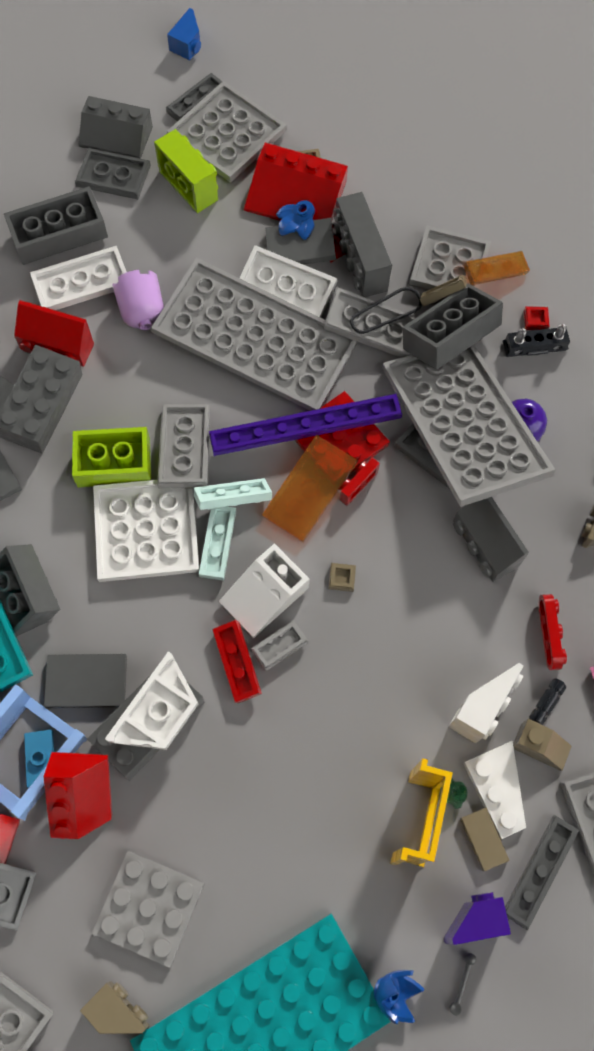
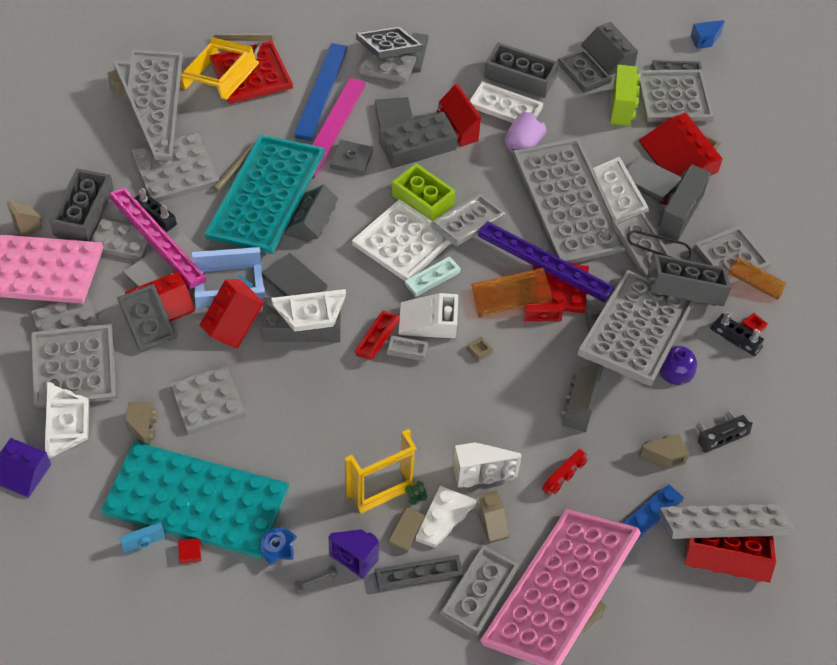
camera: 45 degrees right, 15 degrees down
(232, 494) = (465, 260): light aqua plate -> none
(295, 220) = (662, 164): blue plate -> none
(443, 290) = (708, 260): dark tan tile -> none
(548, 701) = (522, 503): black axle -> none

